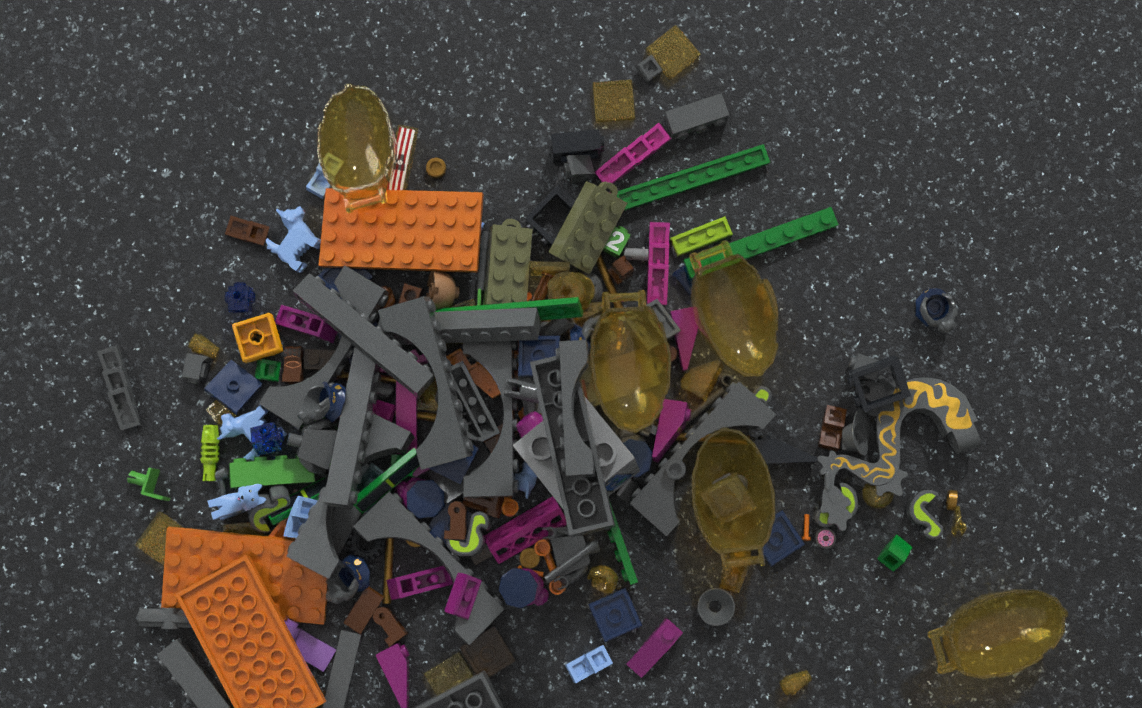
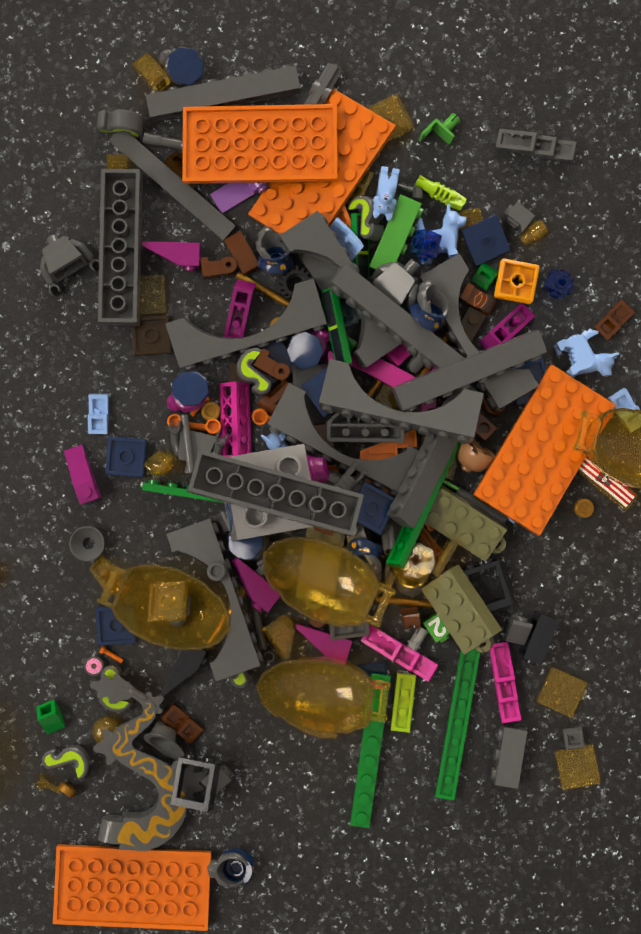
camera: 115 degrees right, 5 degrees up
(463, 595) = (207, 339): magenta slope -> none
(573, 363) = (341, 530): dark grey arch -> none
(1006, 392) = (131, 887): none -> orange plate

